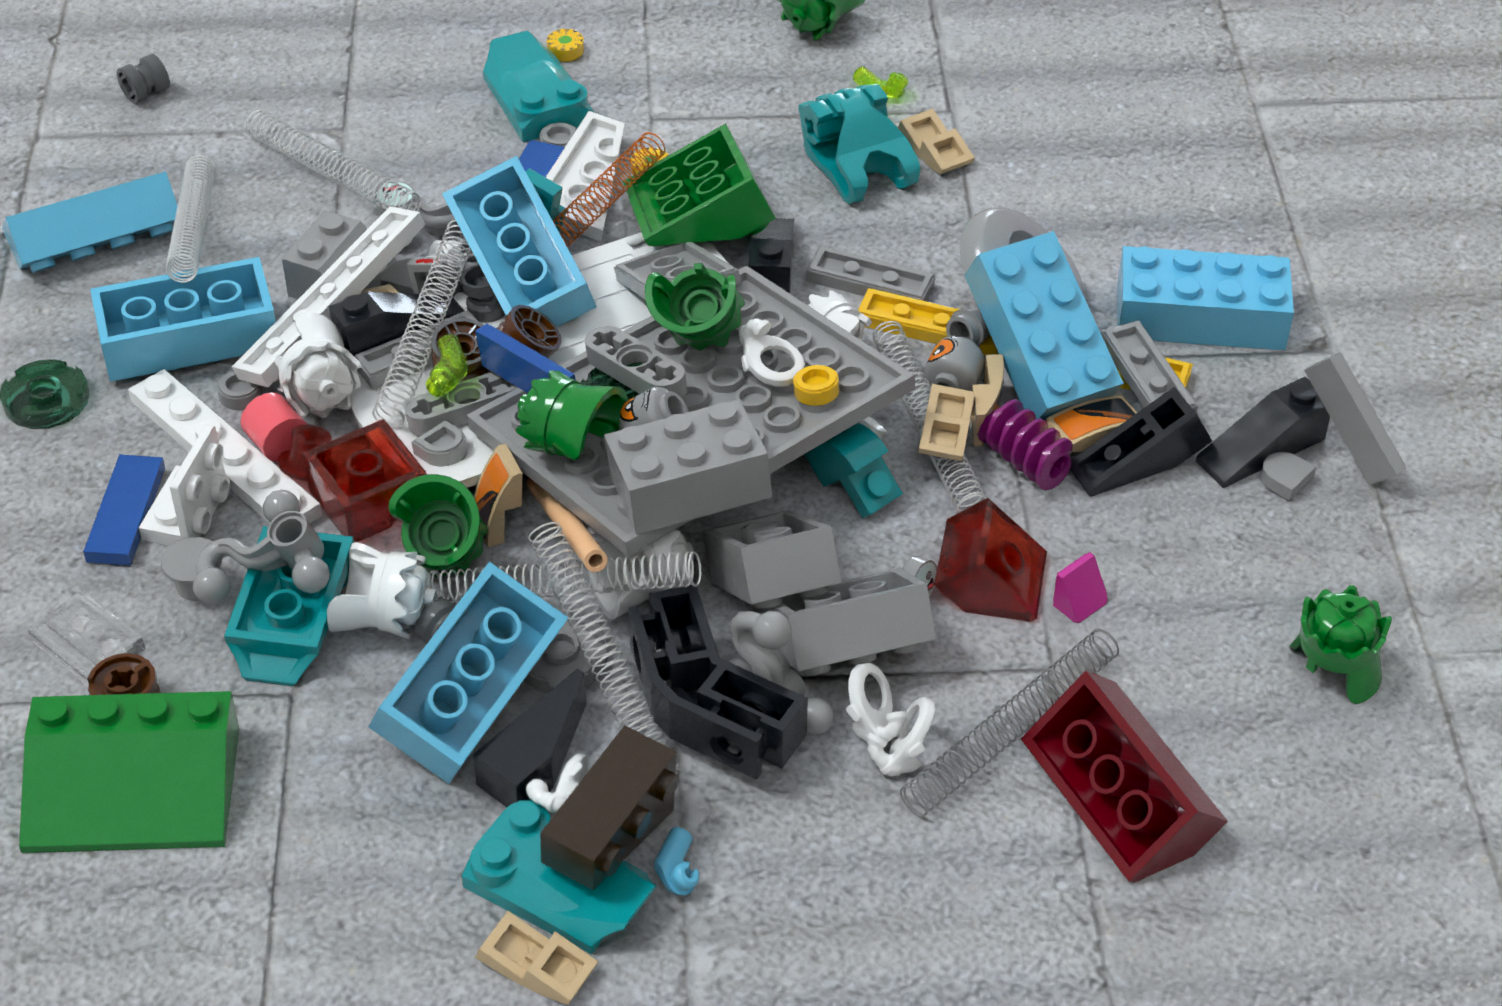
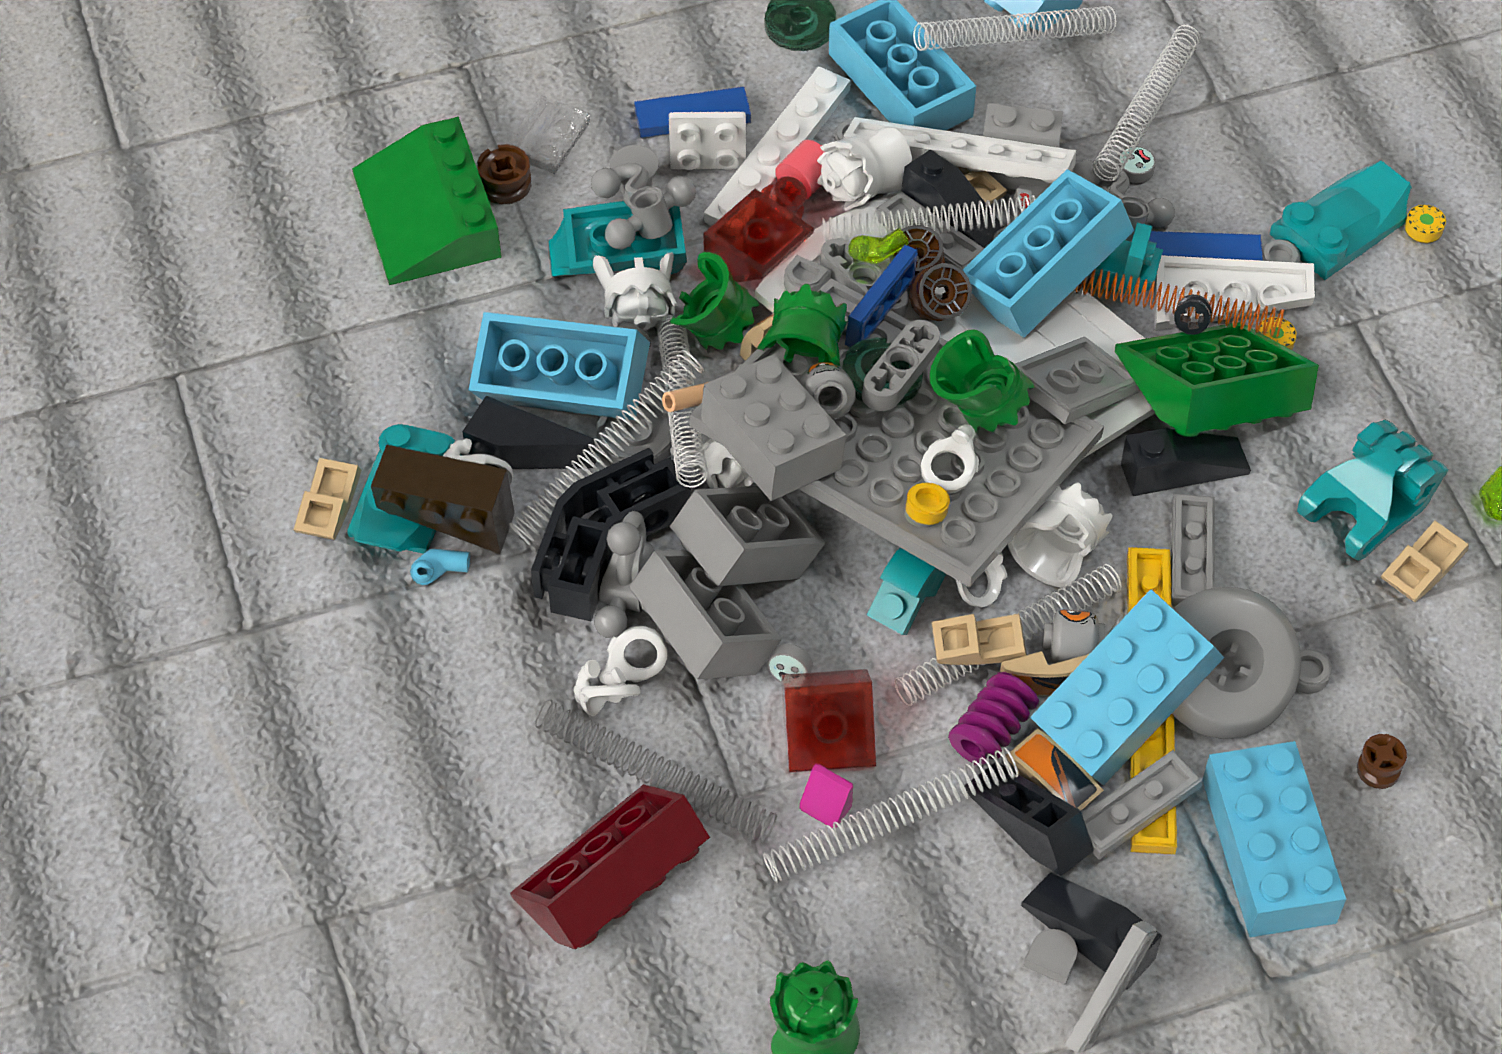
camera: 75 degrees right, 10 degrees up
(615, 190) = (1184, 322): none -> black bush
(1136, 218) = (1379, 750): none -> reddish brown wheel
(1154, 640) = (772, 862): none -> white piece

